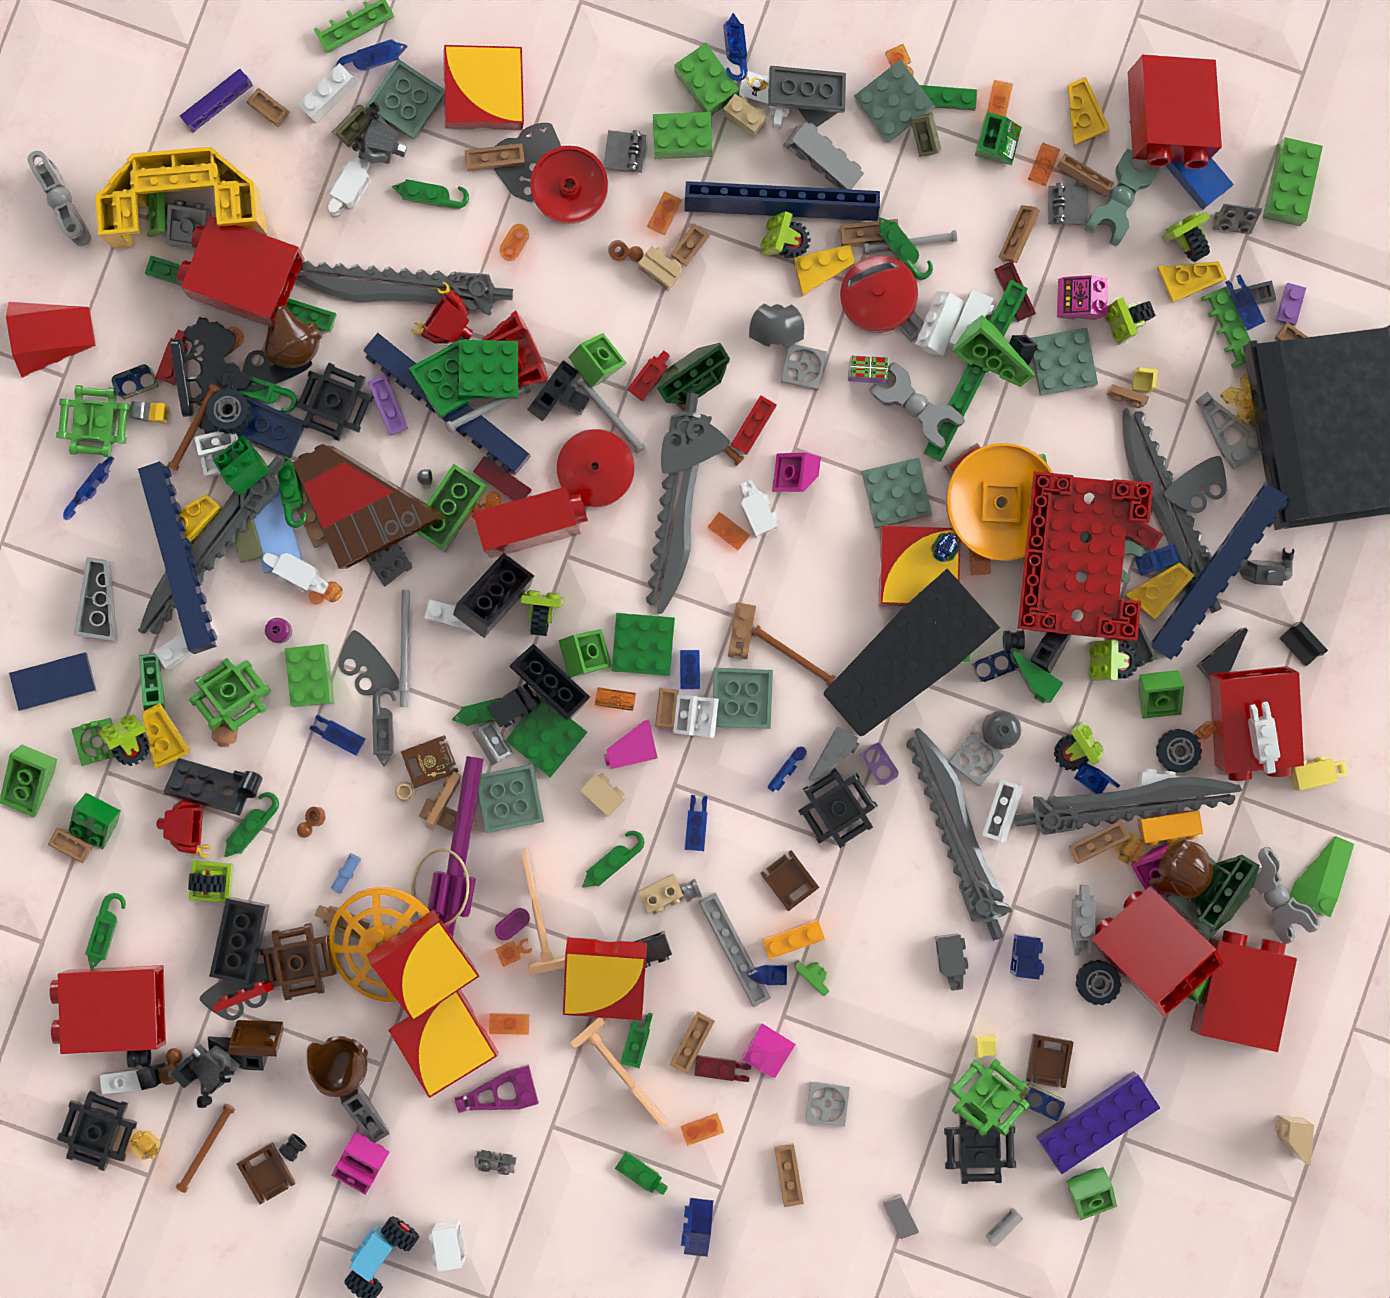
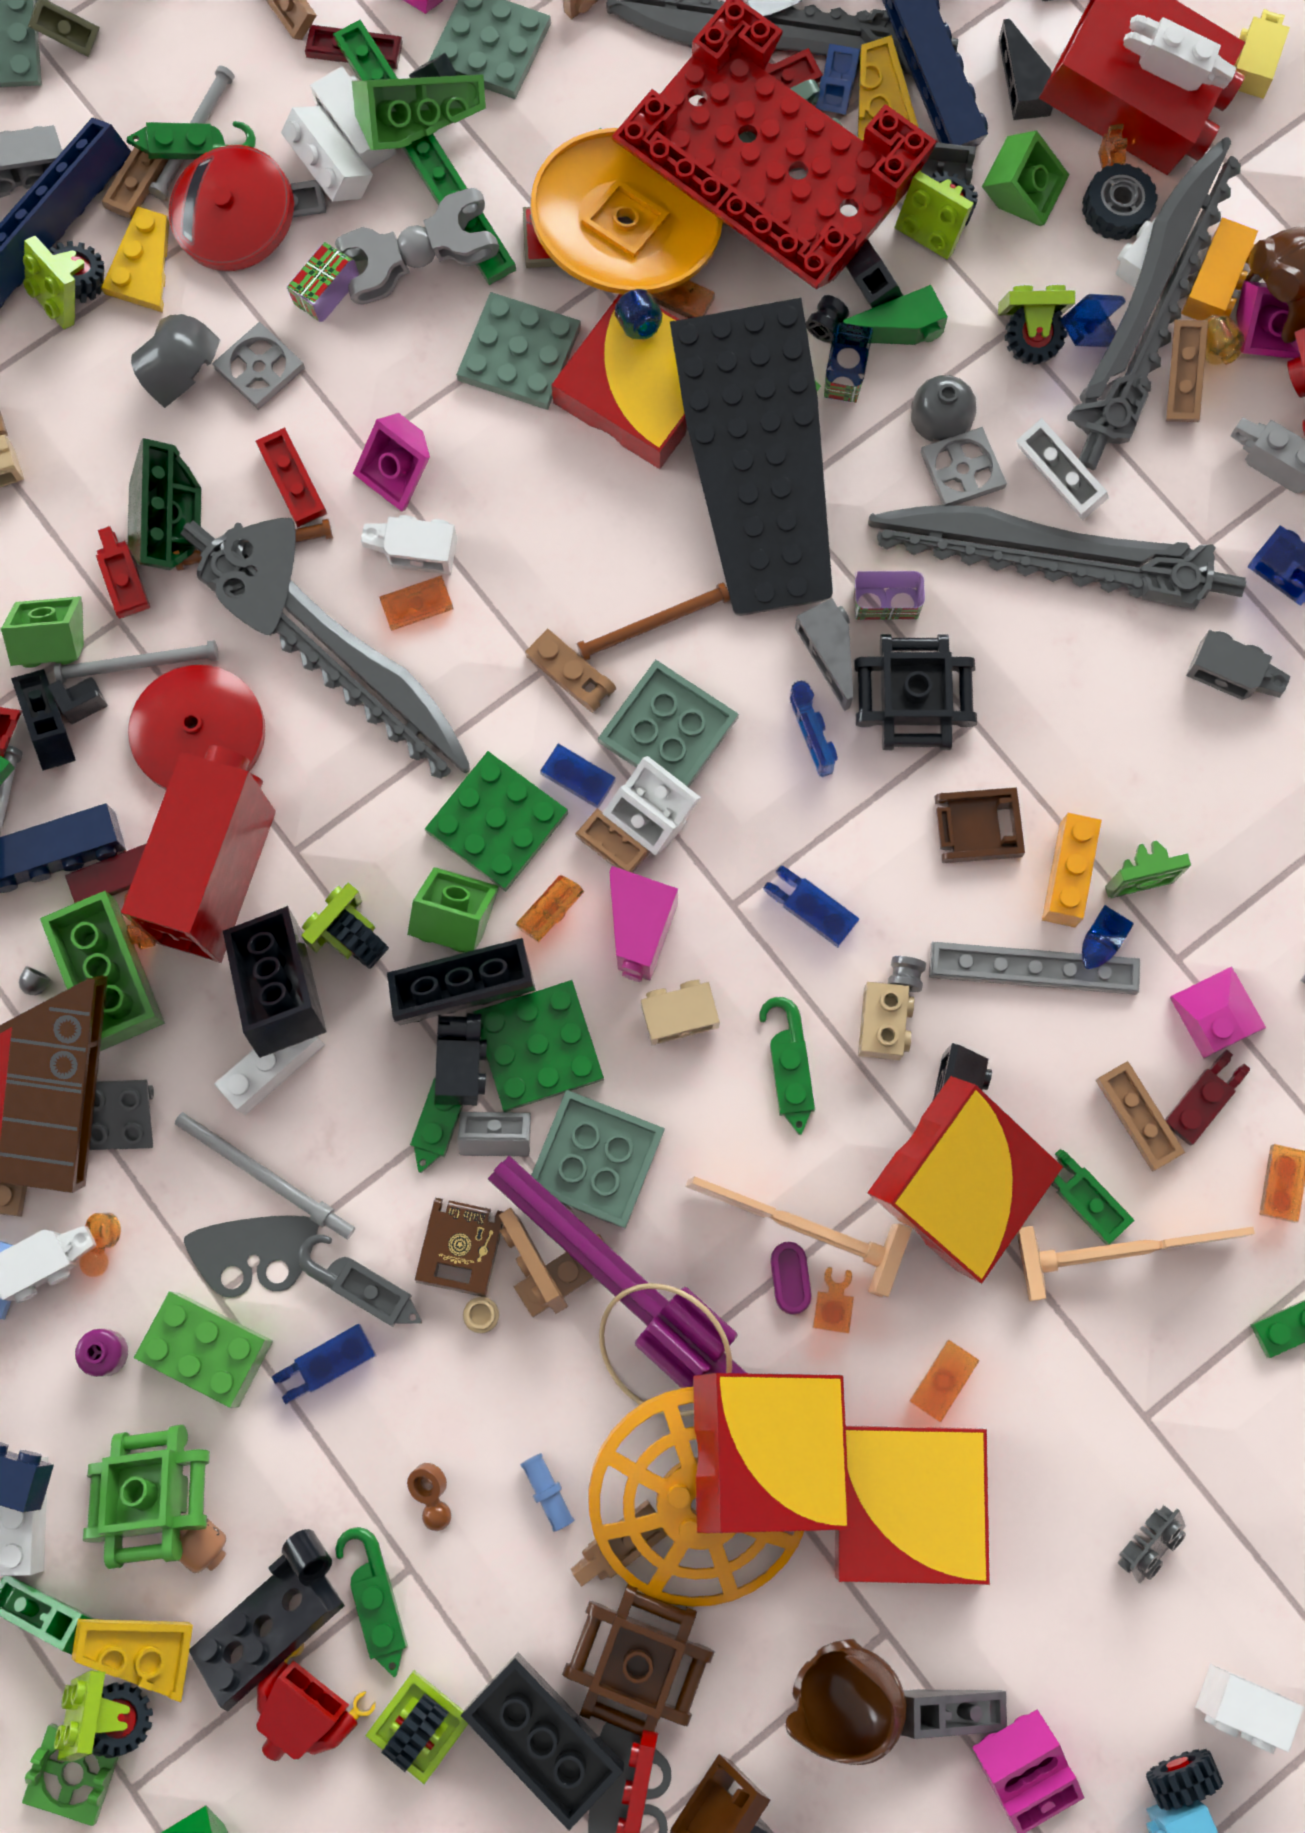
camera: 50 degrees left, 10 degrees down
(523, 1086) = (1060, 1423): magenta plate -> none

